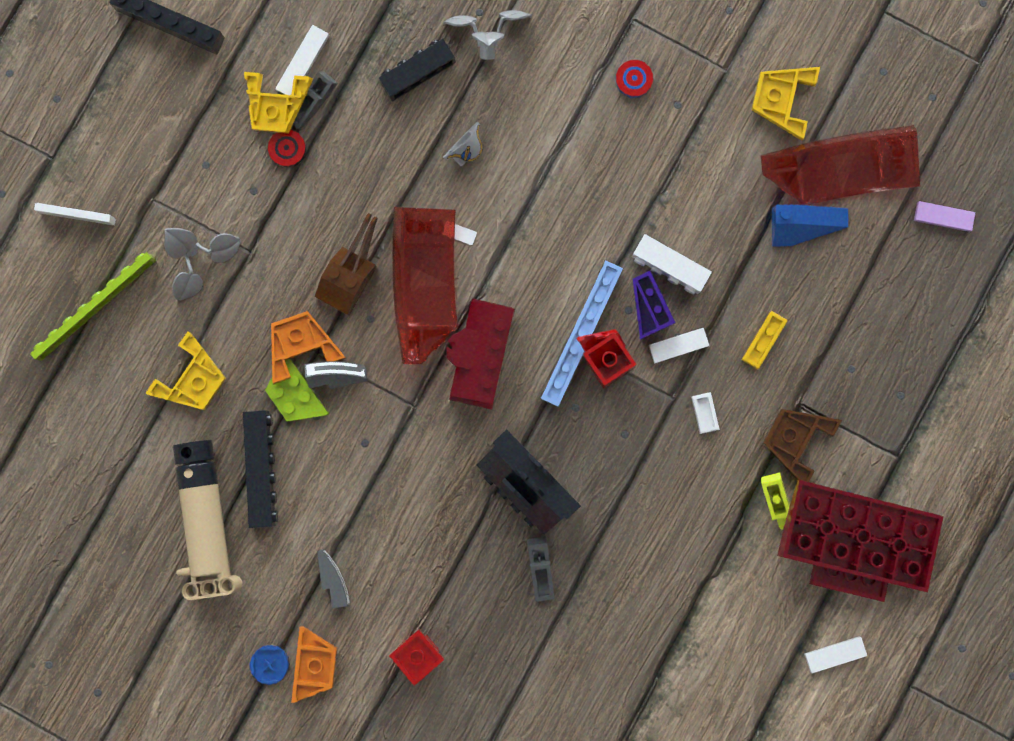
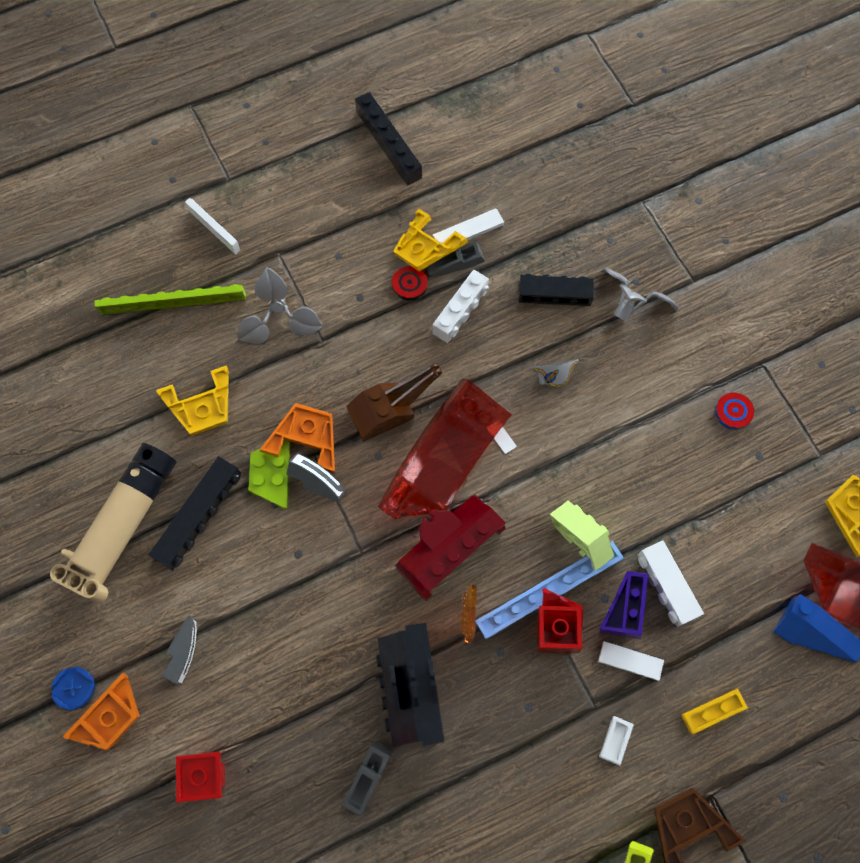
camera: 30 degrees right, 15 degrees down
(346, 140) = (460, 306): none -> white brick
(533, 398) = (468, 614): none -> clear orange plate
(579, 271) = (584, 532): none -> yellowish green wedge

